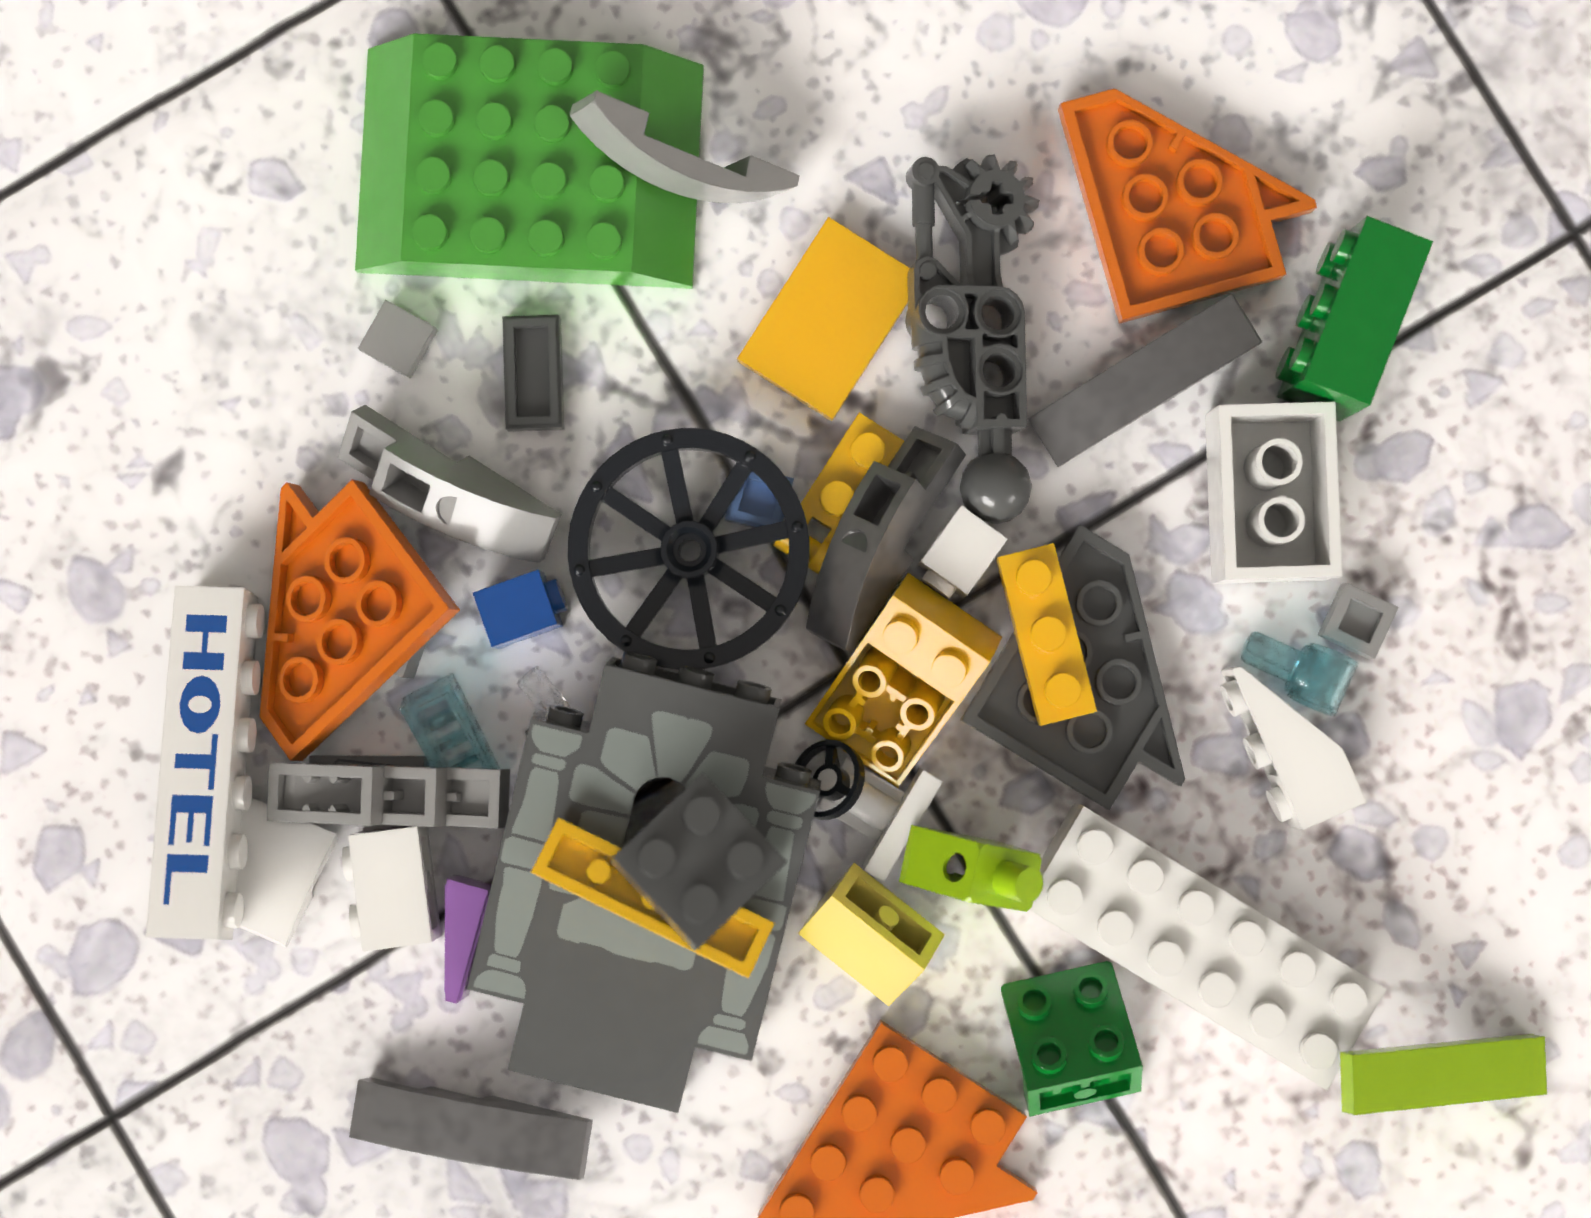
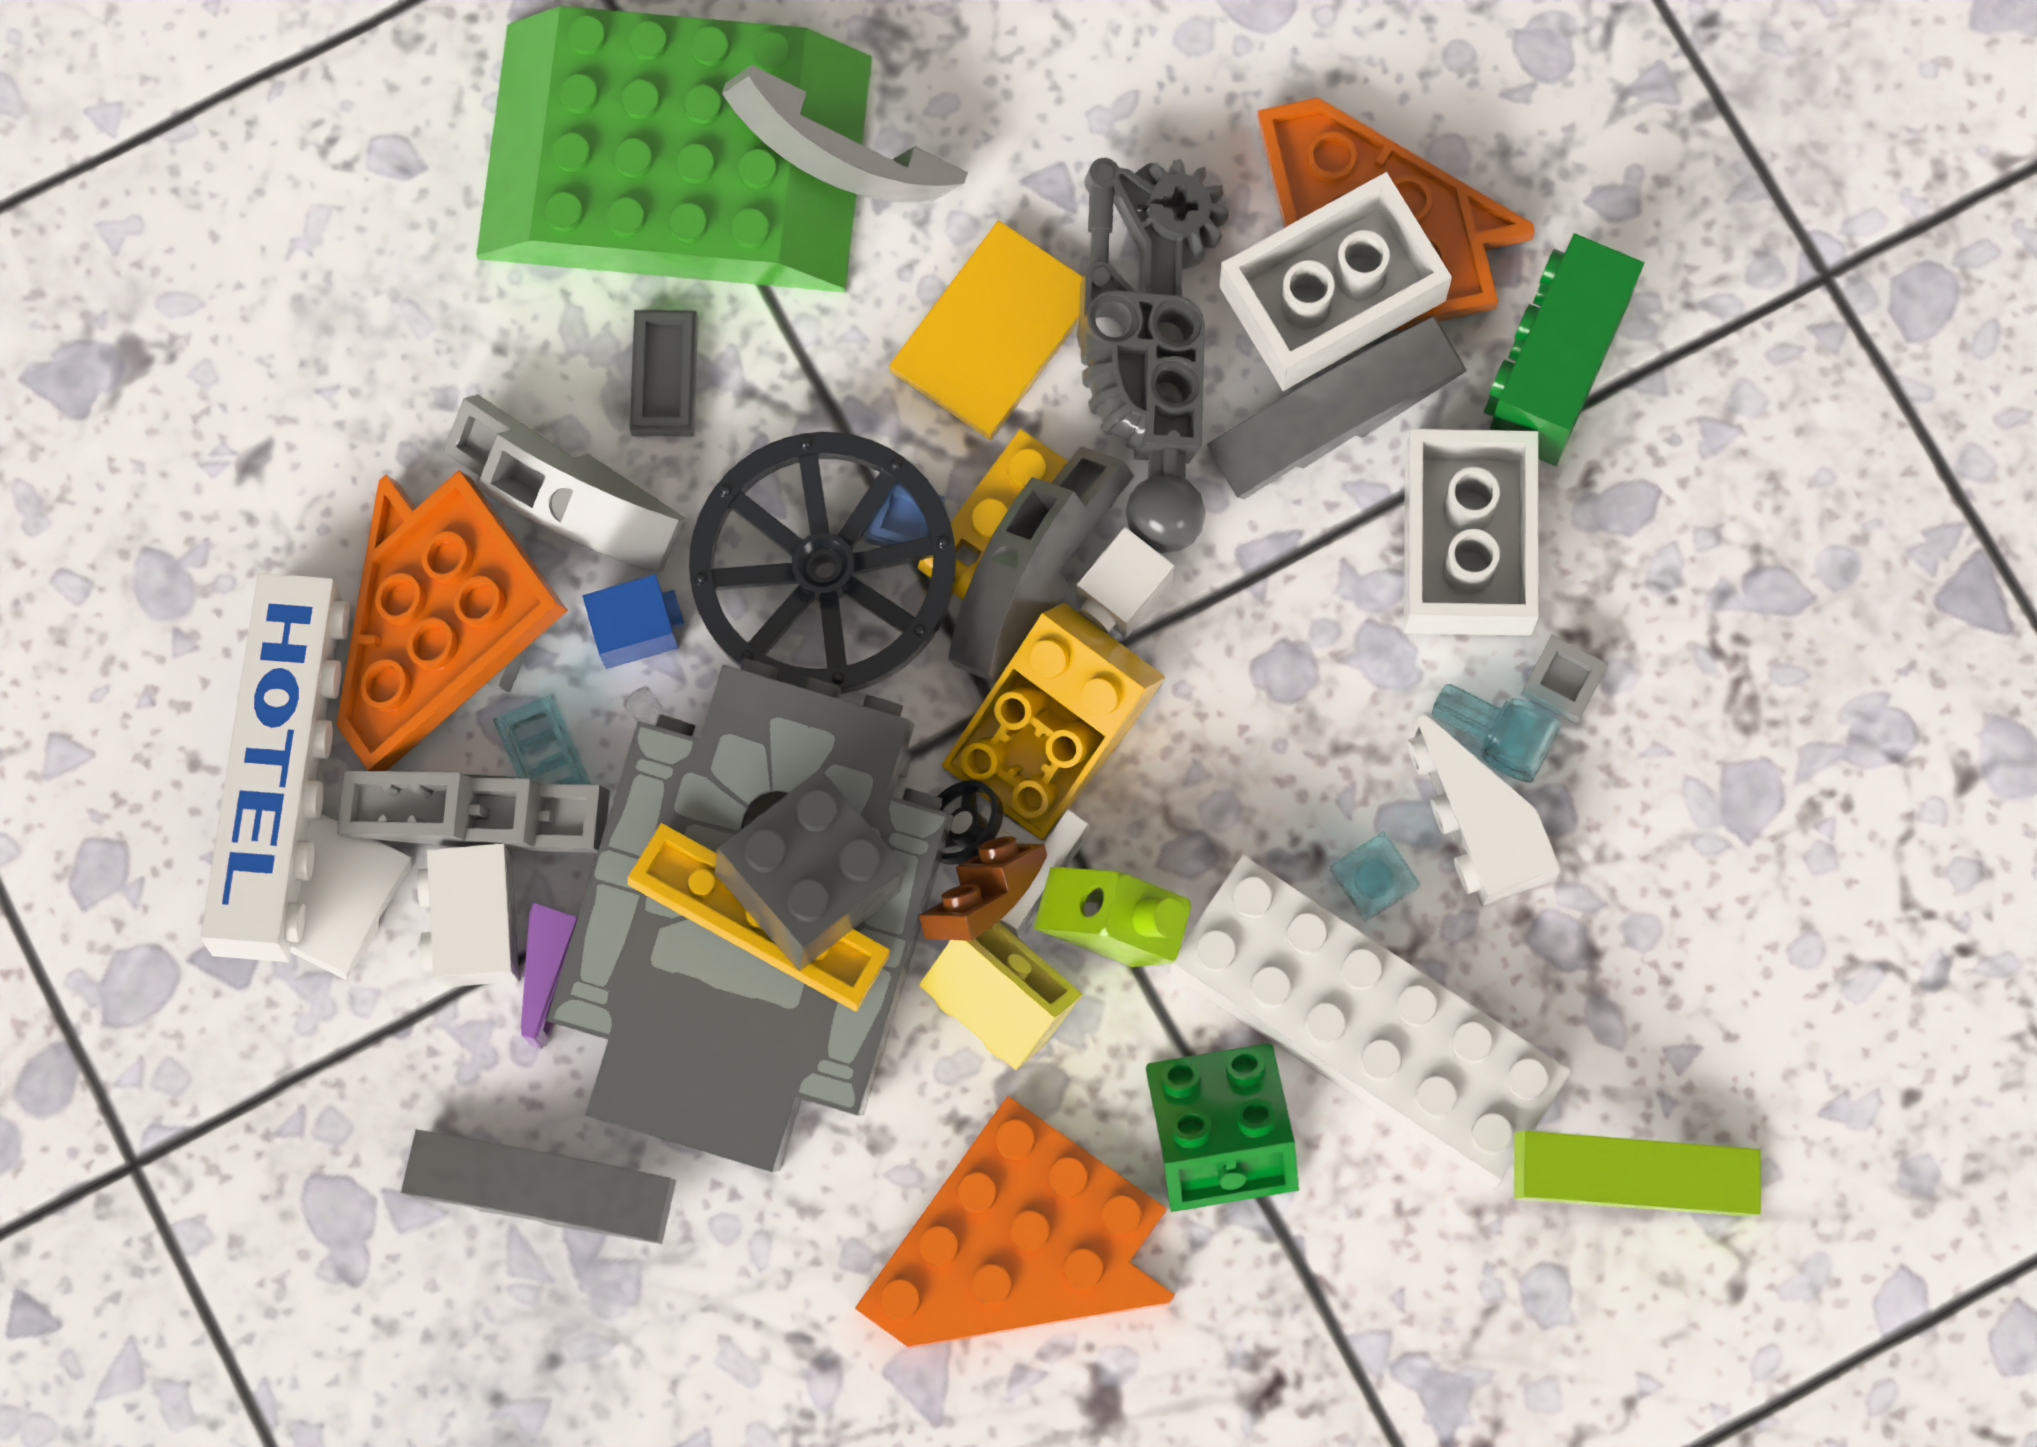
camera: 10 degrees right, 10 degrees down
(397, 339) = (517, 330): light grey tile -> none
(860, 849) = (987, 889): none -> dark orange slope
(1046, 634) = (1212, 672): yellow plate -> none
(1132, 715) = (1251, 728): dark grey wing -> none
(1144, 266) = (1334, 281): none -> white brick
(1196, 809) = (1374, 876): none -> clear light blue plate

